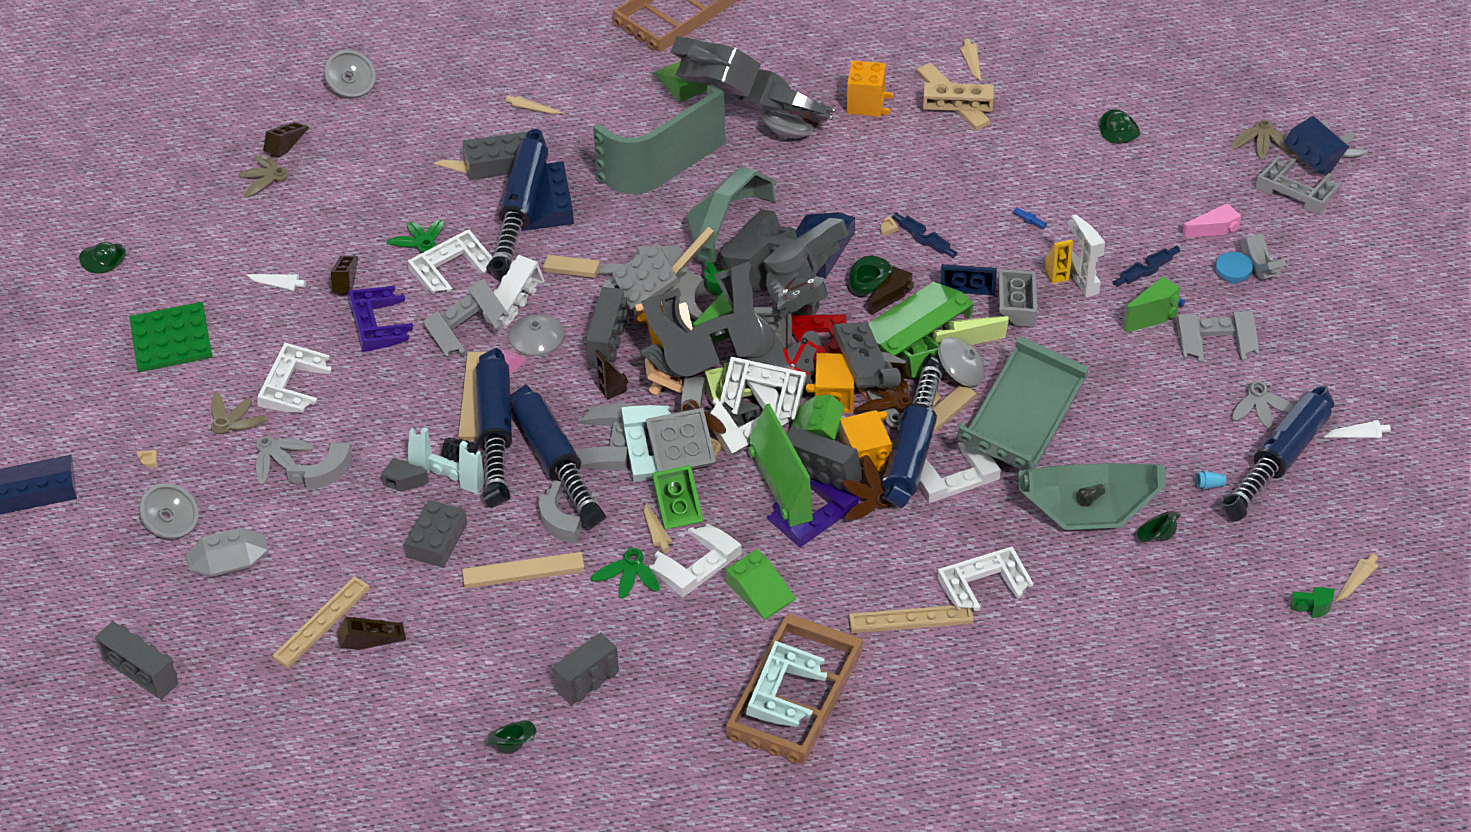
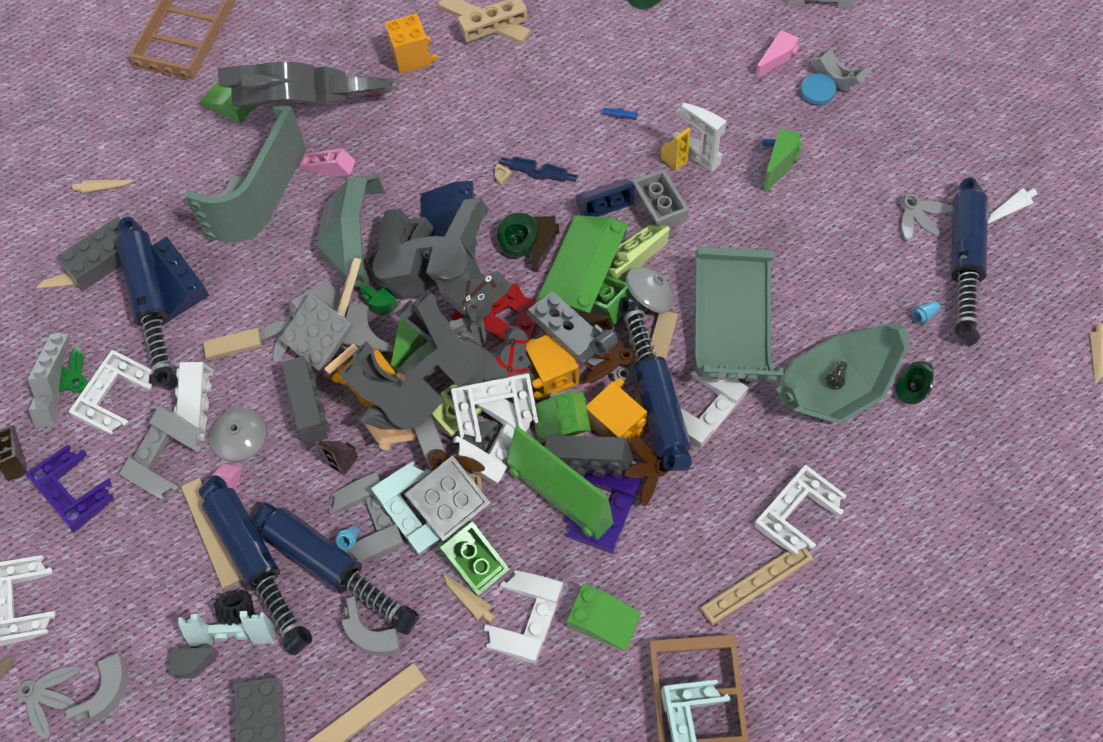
camera: 25 degrees left, 15 degrees up
(401, 232) = (45, 381): none -> light grey arch
(581, 440) = (347, 538): none -> medium azure cone
(630, 569) = (472, 667): green plant -> none
(737, 157) = (328, 162): none -> bright pink slope
(787, 125) = (356, 109): light grey dish -> none
(1153, 261) = (741, 126): dark blue piece -> none
(1241, 325) = (858, 143): light grey wedge -> none
(1317, 602) = (1085, 395): green brick -> none

